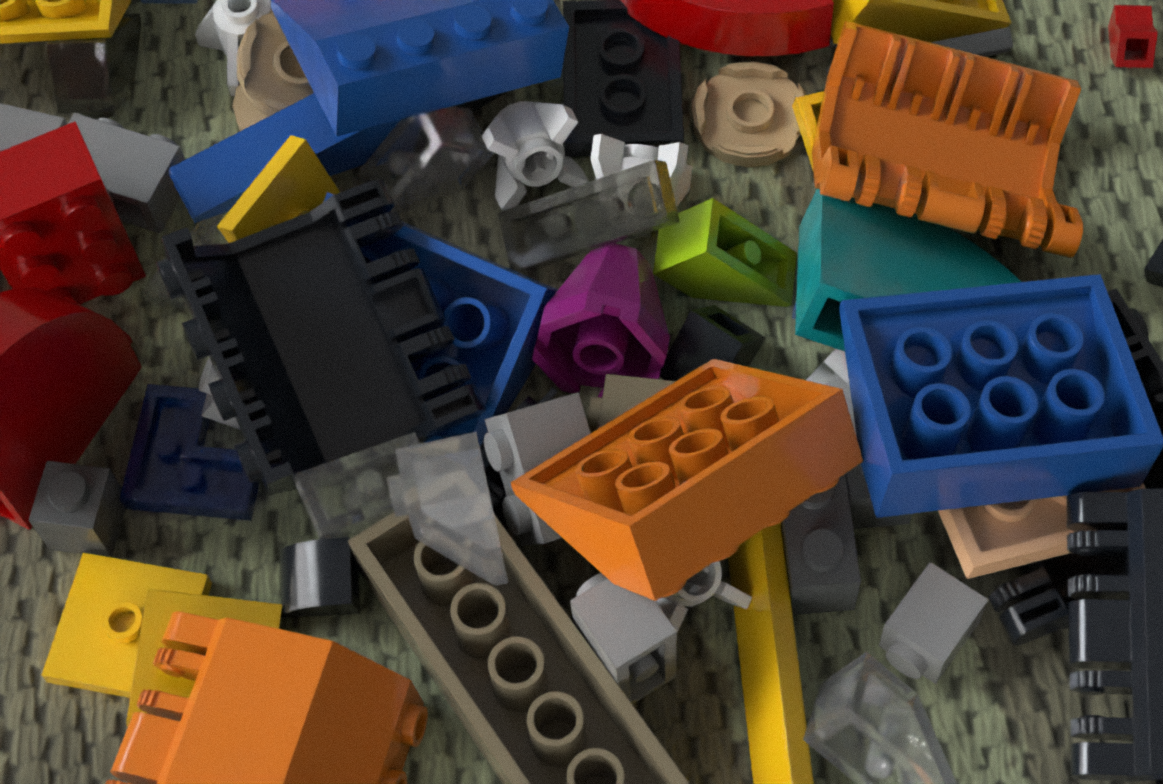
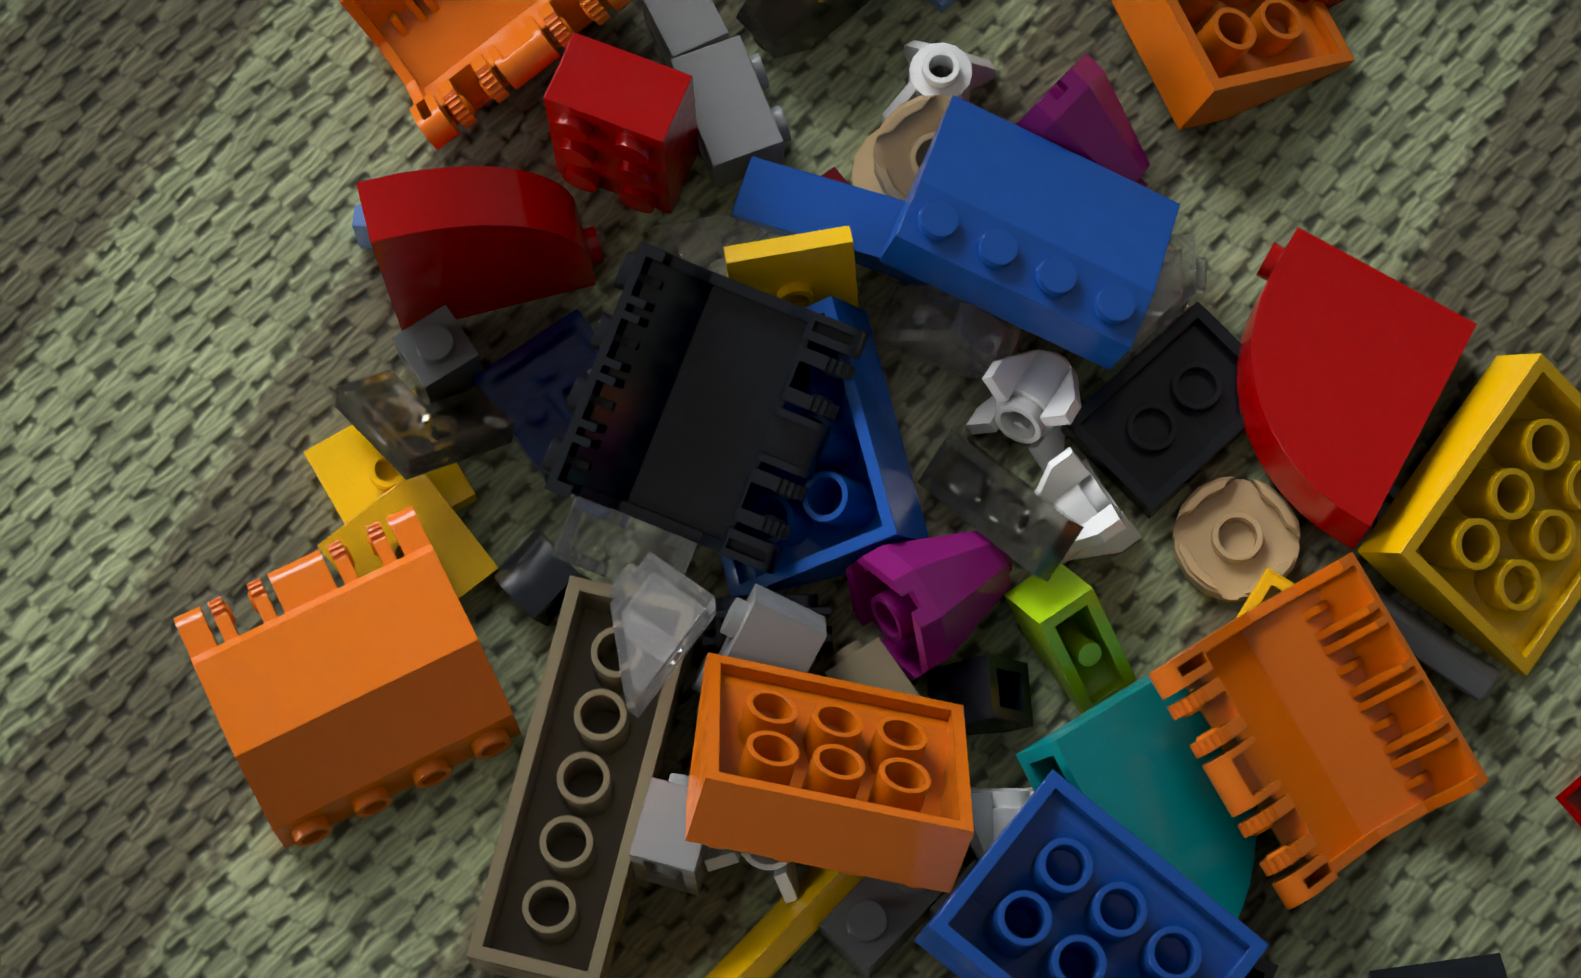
camera: 45 degrees right, 10 degrees up
(122, 567) = (419, 435): none -> clear smoke plate

